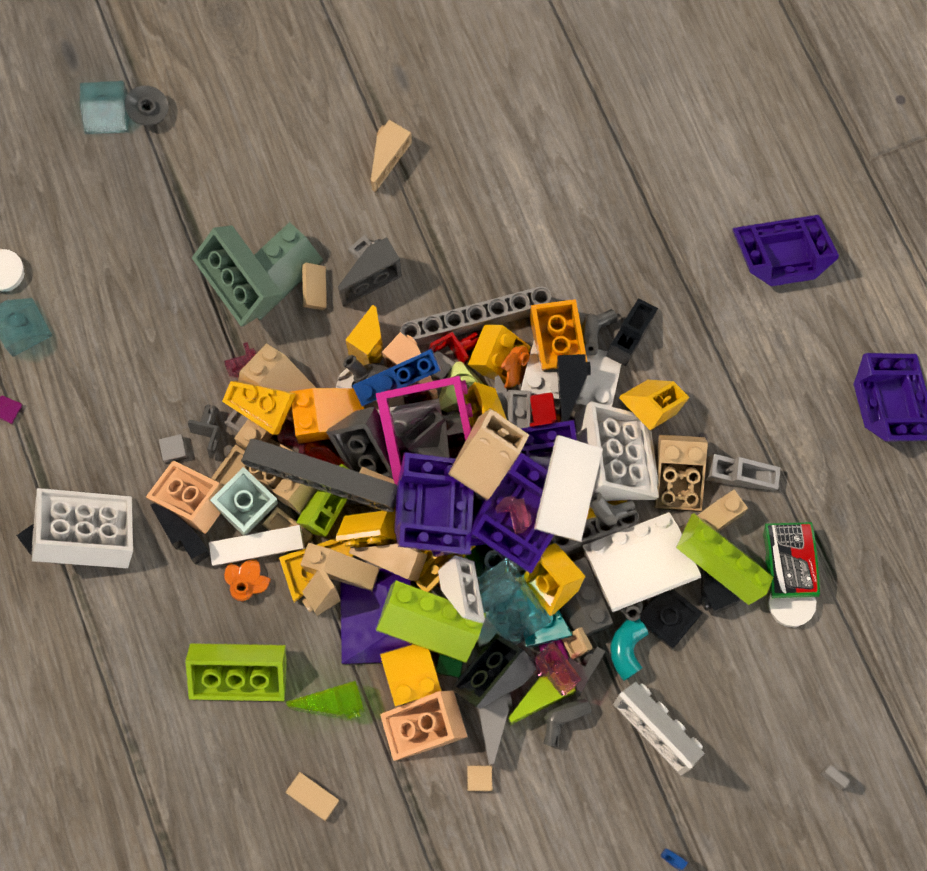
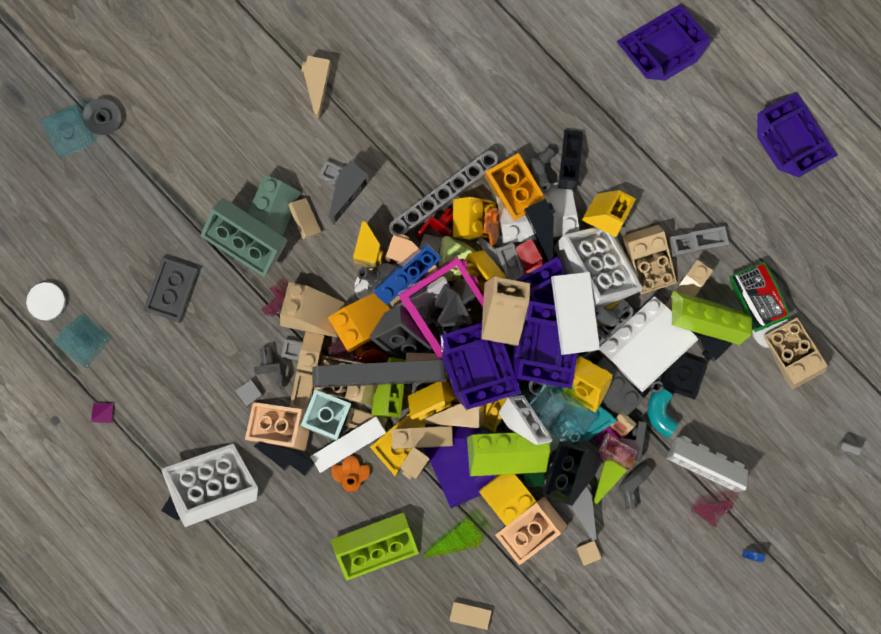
camera: 25 degrees left, 10 degrees up
(139, 308) = (171, 289): none -> dark grey tile
(260, 404) = (307, 335): yellow wing -> none
(520, 516) = (545, 347): clear pink bracket -> none
(637, 784) = (706, 512): none -> clear pink slope
(810, 641) = (795, 353): none -> tan slope

